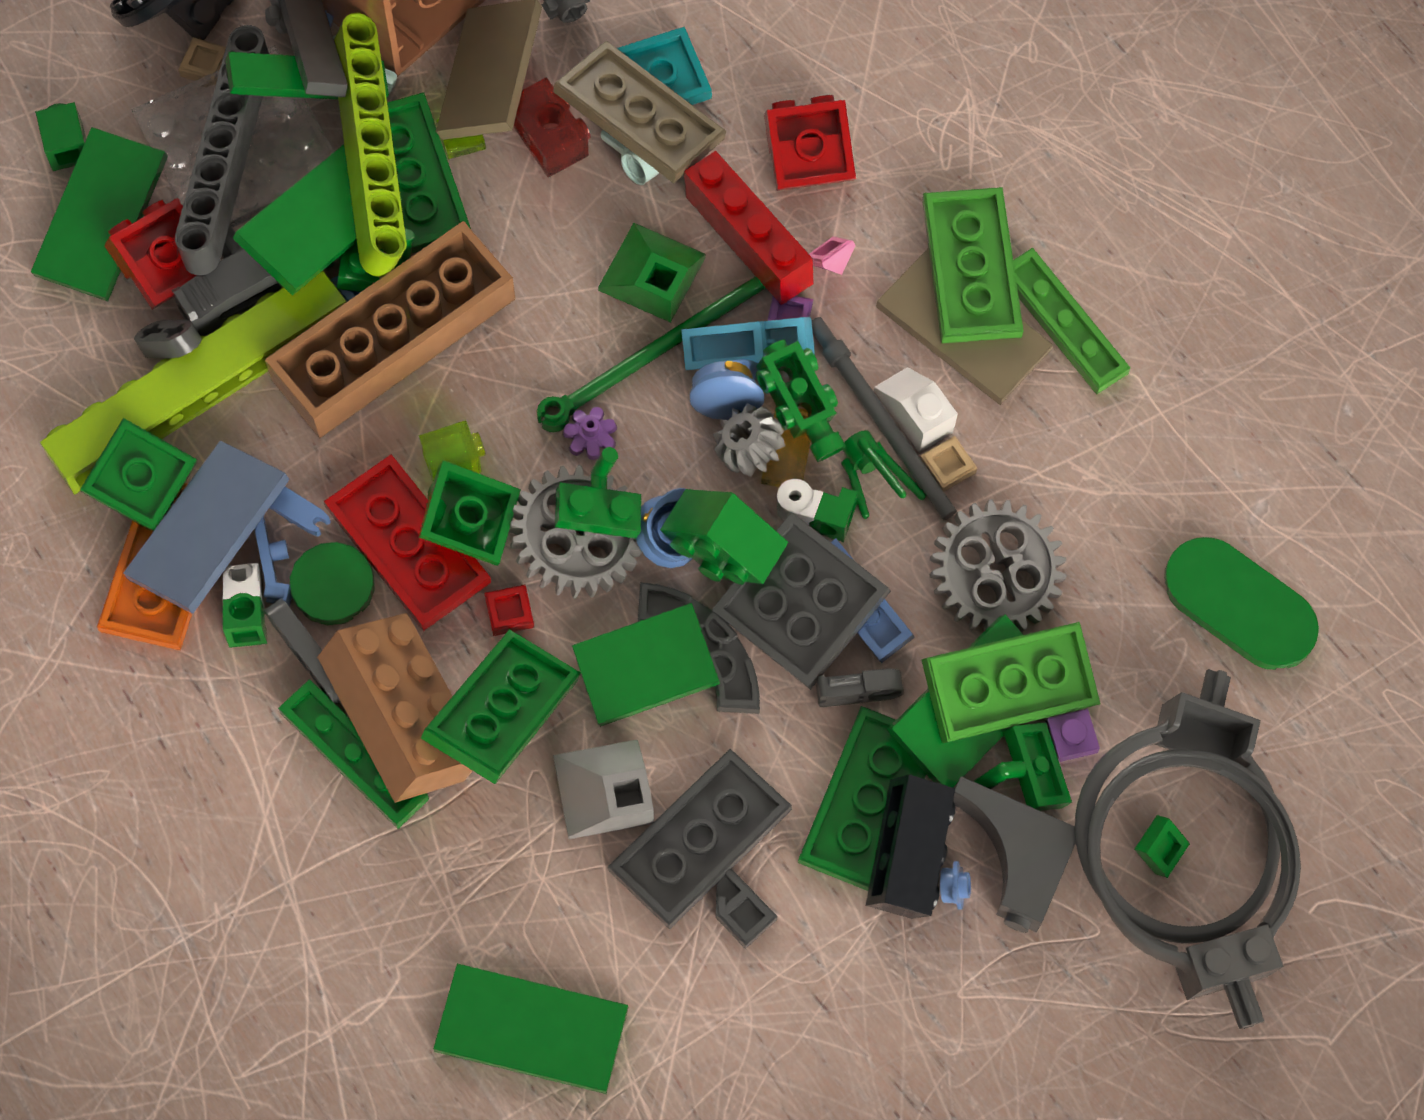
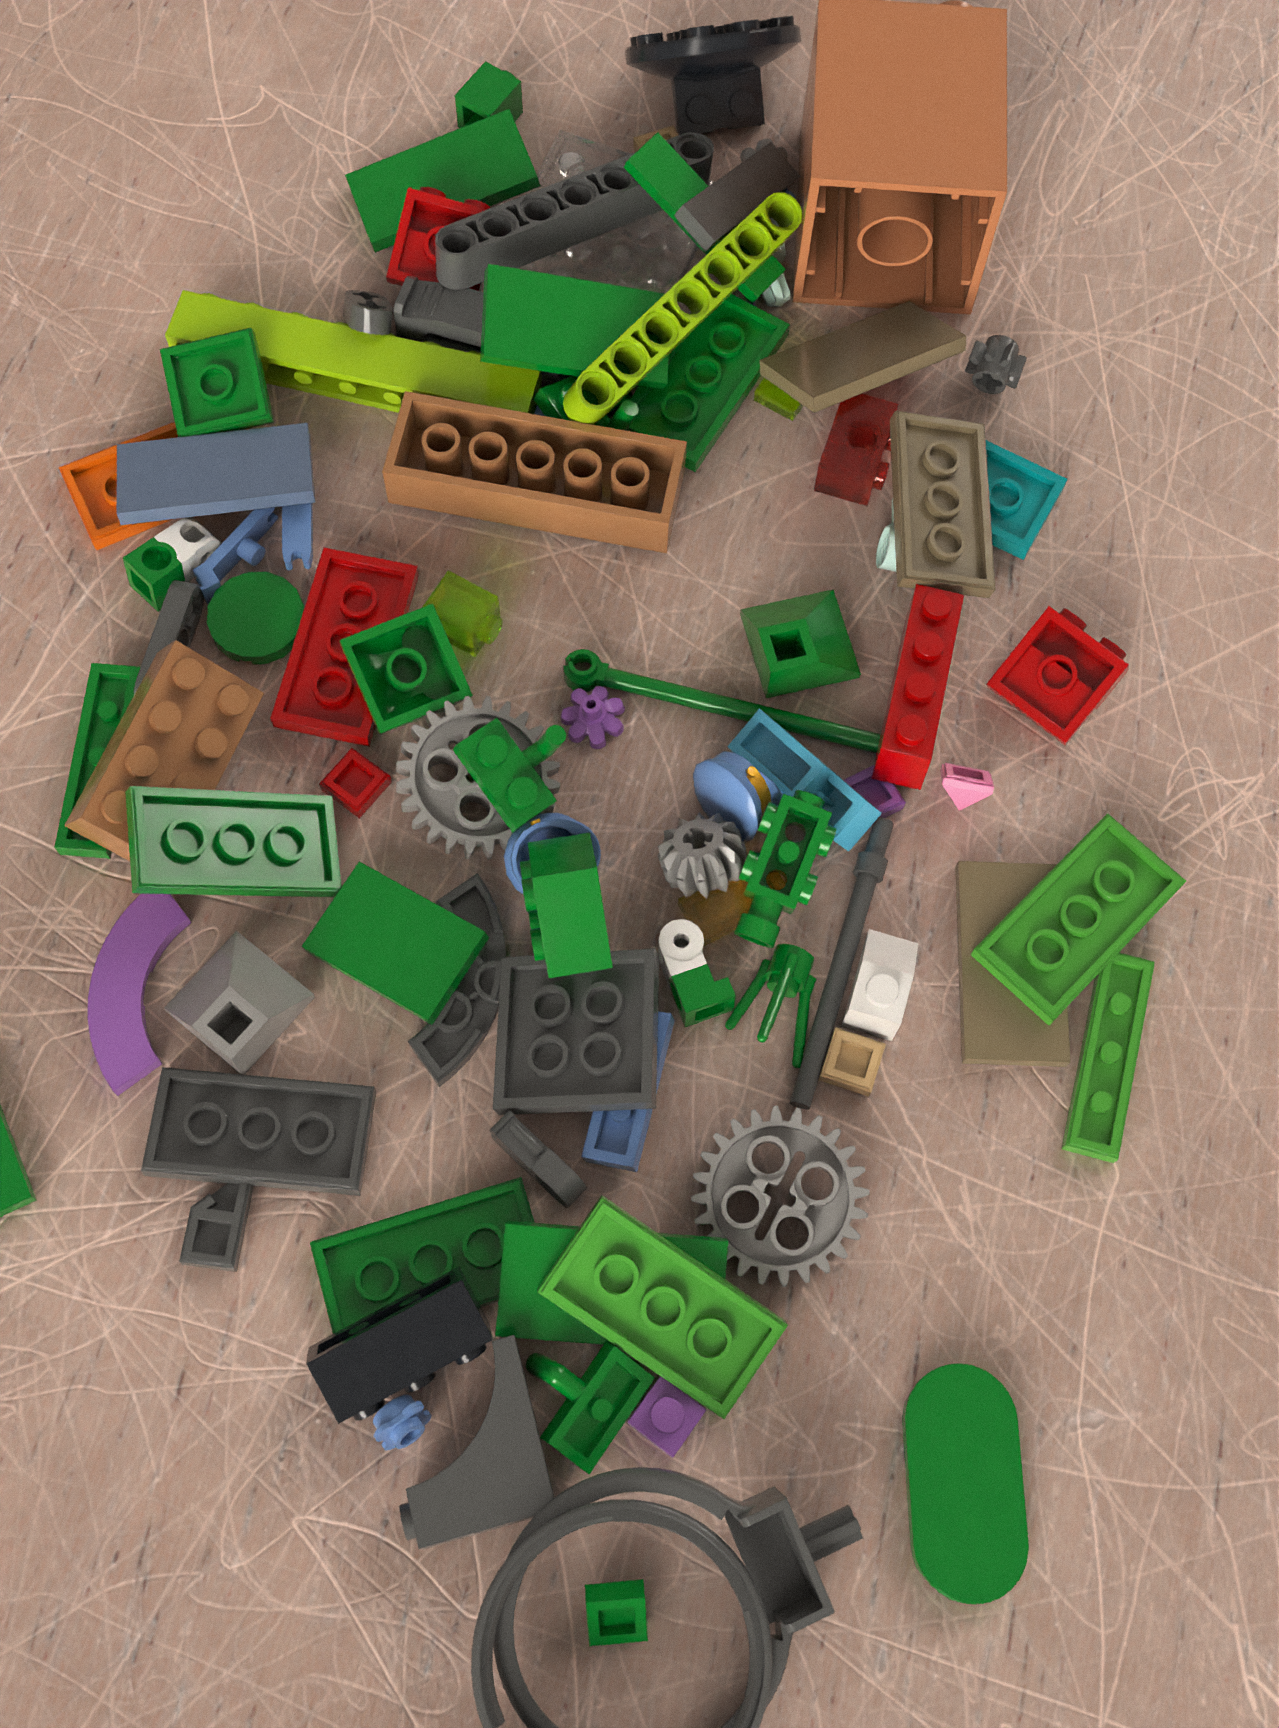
camera: 50 degrees right, 0 degrees up
(527, 855) = (119, 984): none -> medium lavender tile

